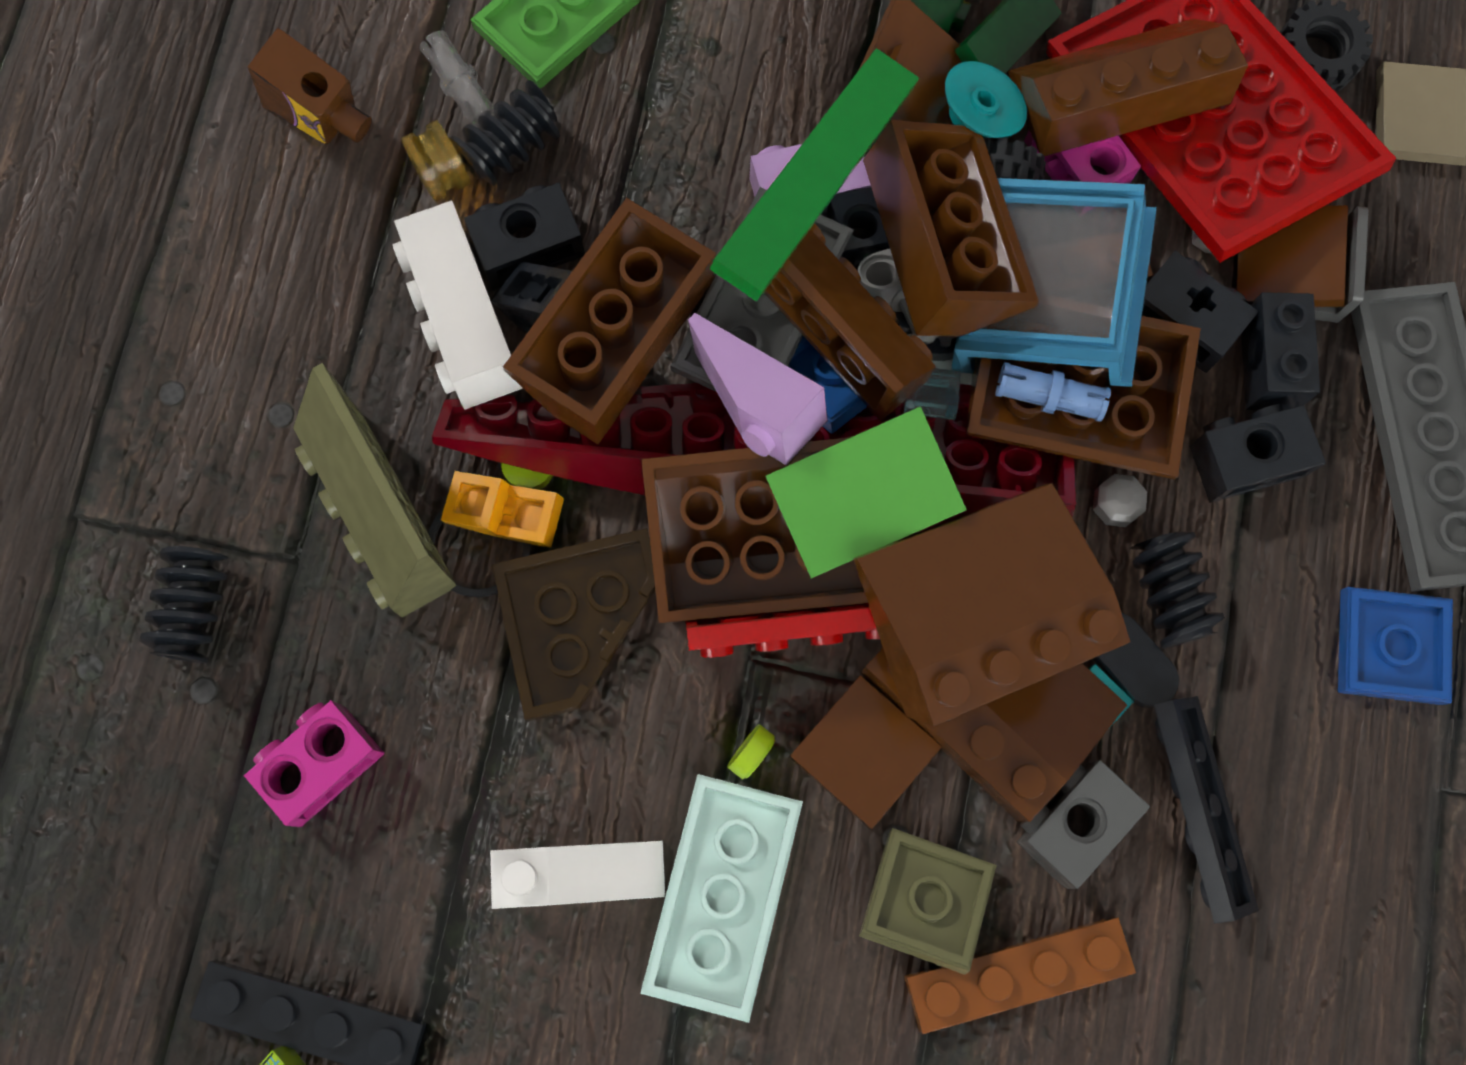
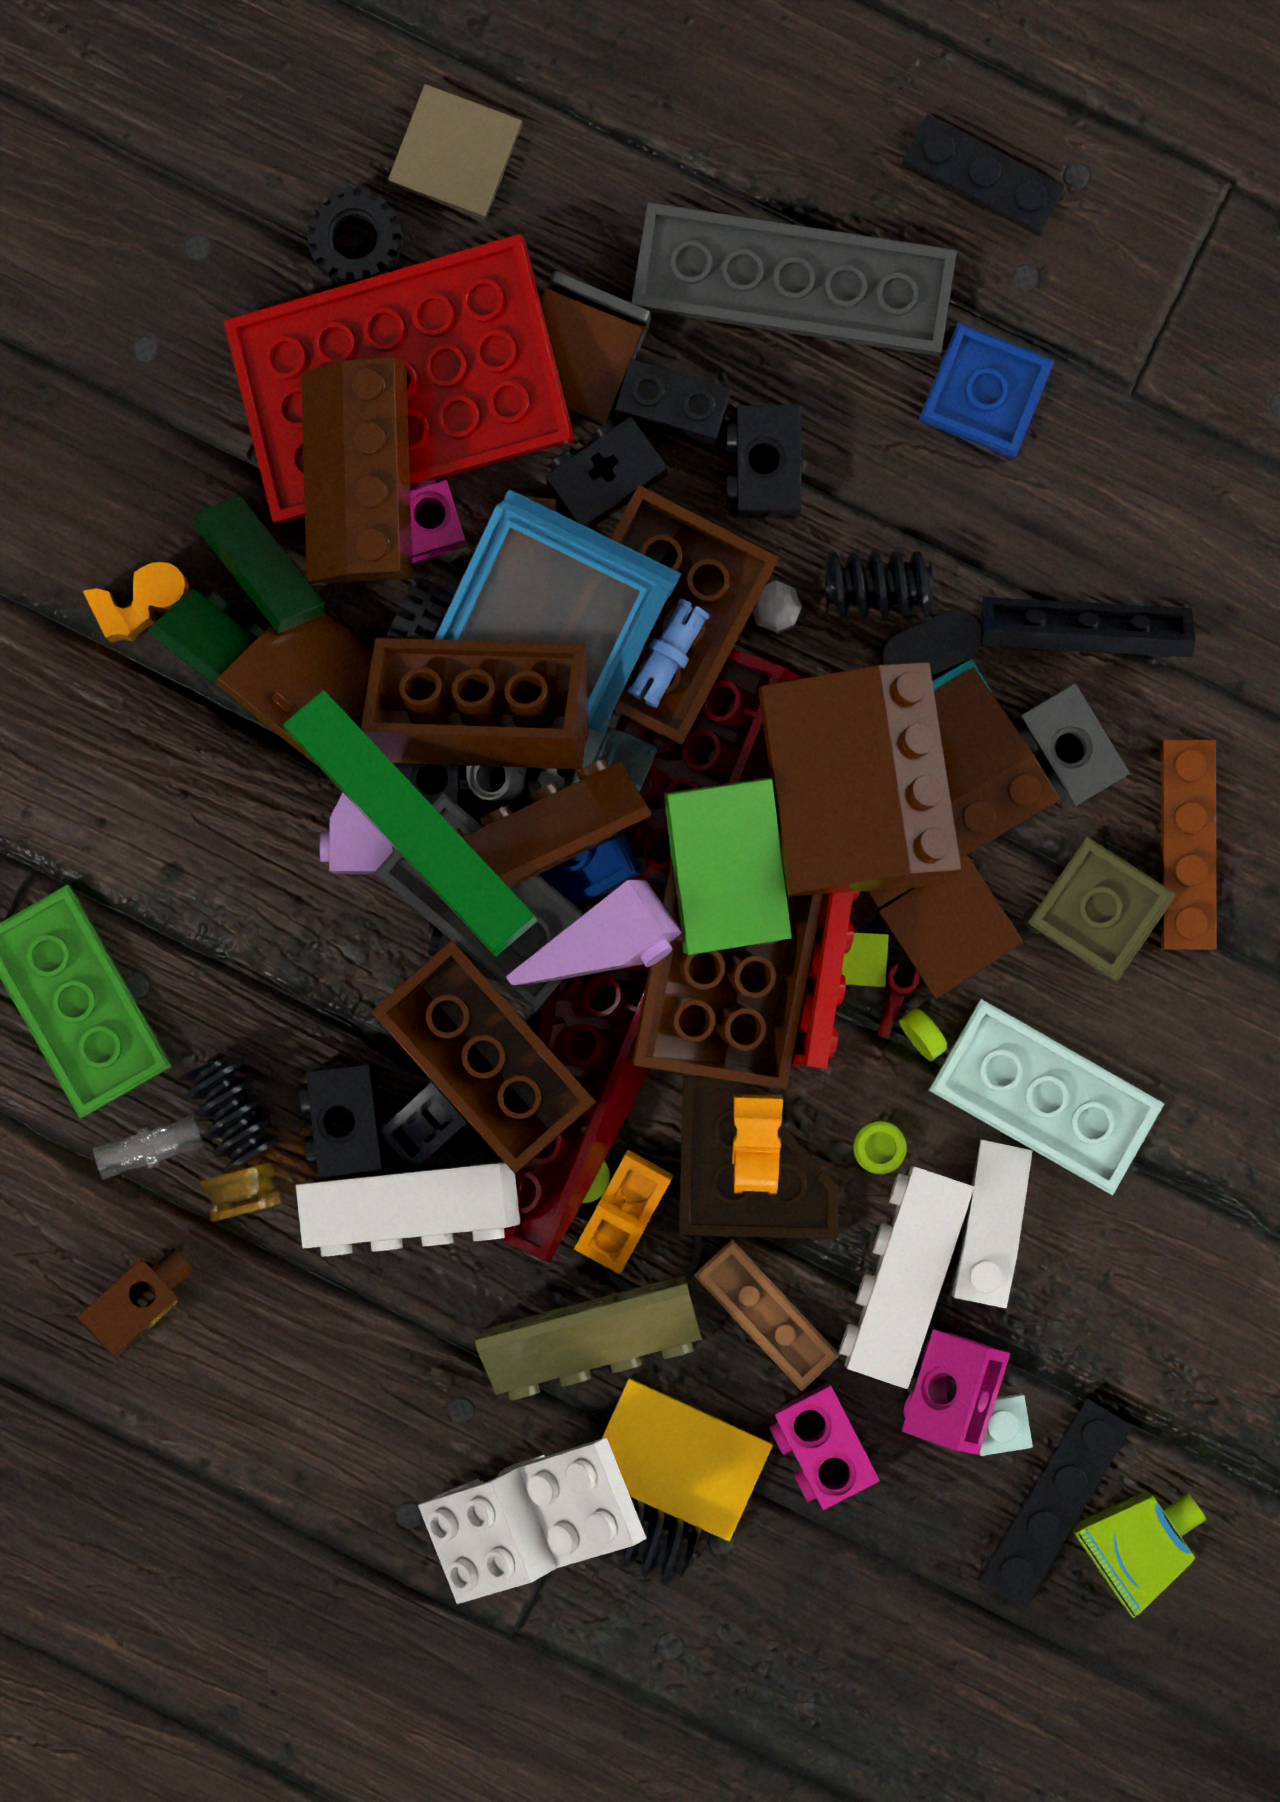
camera: 70 degrees left, 10 degrees up
(173, 490) = (531, 1520): none -> white piece
(273, 626) = (684, 1459): none -> yellow tile
(377, 941) = (1007, 1427): none -> light aqua plate
(421, 898) = (978, 1377): none -> dark pink brick
(435, 674) = (766, 1315): none -> medium nougat tile
(503, 801) = (907, 1276): none -> white brick
(591, 611) = (756, 1143): none -> light orange leg
(627, 740) = (879, 1147): none -> lime tile
(777, 716) = (894, 1001): none -> dark red hand
(807, 672) = (866, 960): none -> lime tile
(984, 100) = (345, 604): teal piece -> none

